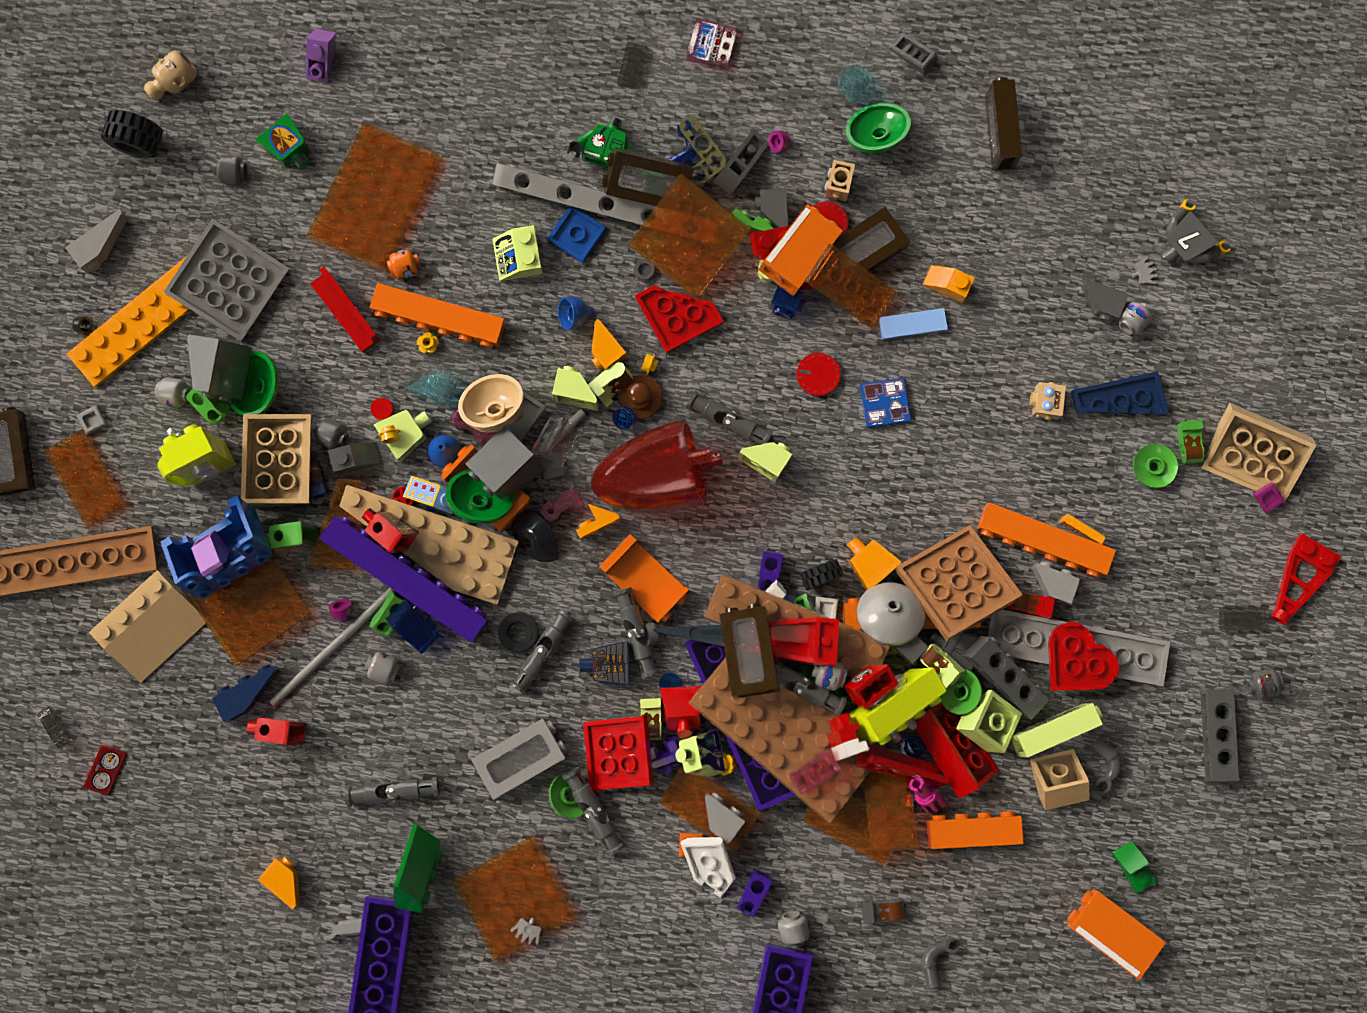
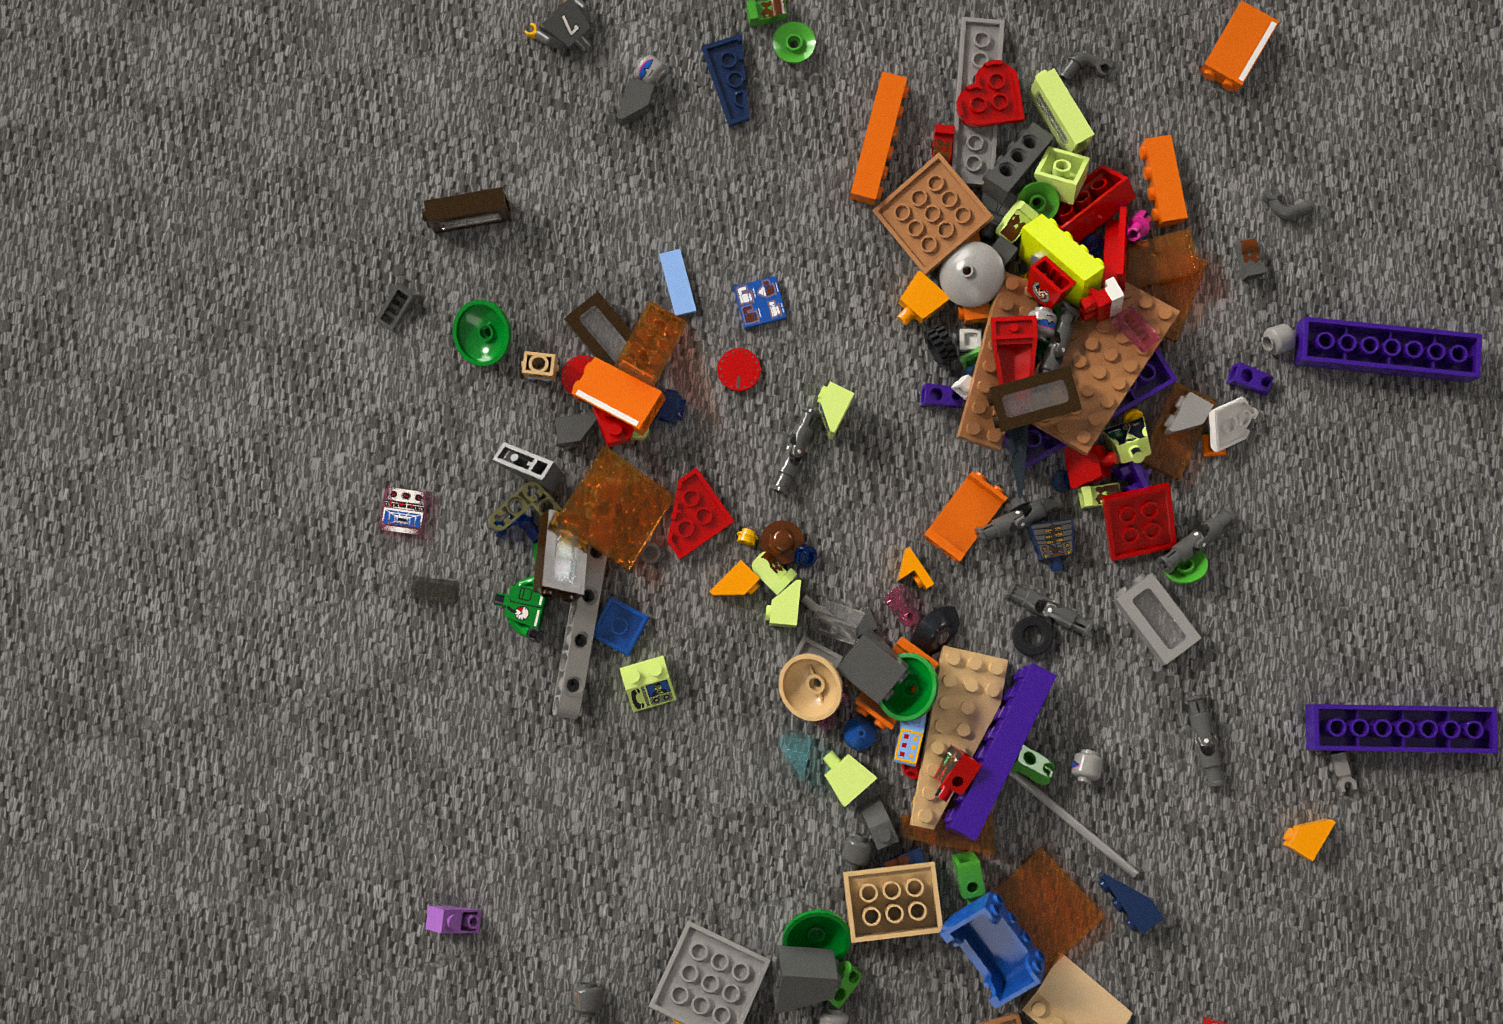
camera: 95 degrees left, 0 degrees up
(193, 456) = (904, 986): neon yellow piece -> none
(210, 553) = (1001, 954): slope -> none
(277, 731) = (1164, 863): torso -> none
(284, 142) = (553, 943): torso -> none
(341, 609) = (1033, 816): magenta tile -> none
(344, 311) = (726, 856): red fence -> none
(374, 196) = (600, 841): clear orange plate -> none
(381, 408) = (824, 803): red tile -> none
(389, 434) = (854, 787): yellow plate -> none
(403, 264) = (671, 800): orange head -> none
(413, 626) = (1044, 738): clear blue brick -> none
(417, 870) = (1282, 701): green slope -> none
(432, 347) = (750, 771): yellow plate -> none
(437, 315) = (721, 758): orange brick -> none
(512, 888) = (1289, 609): clear orange plate -> none
(527, 929) = (1318, 590): light grey piece -> none
(573, 312) = (704, 618): blue helmet -> none
(655, 471) = (861, 514): clear red windscreen -> none
(757, 225) = (594, 441): bright green slope -> none
(779, 141) = (503, 431): magenta tile -> none
(853, 81) = (434, 362): clear light blue slope -> none
(949, 282) = (633, 251): light orange slope -> none
(1048, 400) = (741, 146): tan head -> none
(1056, 583) = (920, 126): light grey slope -> none
(1060, 779) = (1105, 106): tan slope -> none
(1081, 529) = (864, 105): light orange tile -> none
(1134, 866) = (1174, 35): green slope -> none
(1143, 272) = (601, 68): light grey piece -> none

